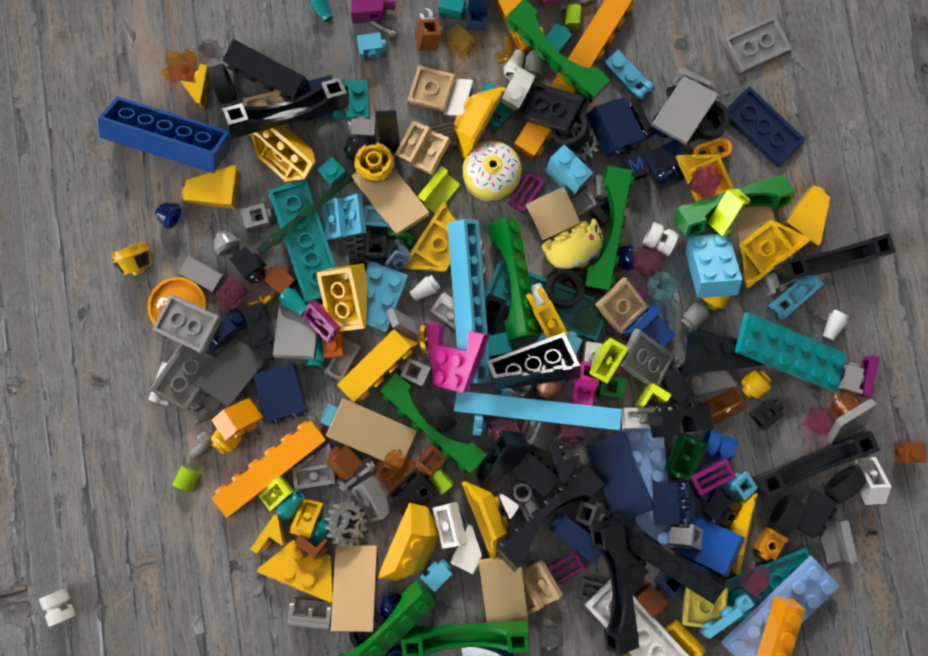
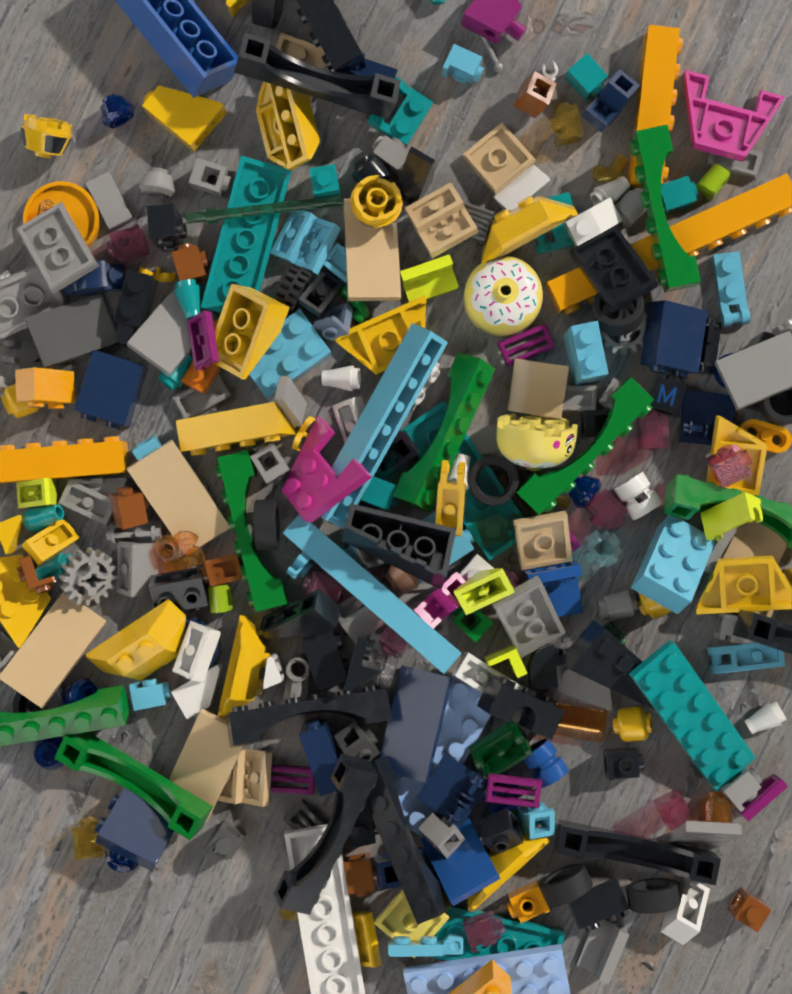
camera: 40 degrees right, 5 degrees up
(643, 193) = (653, 431): none -> clear pink brick

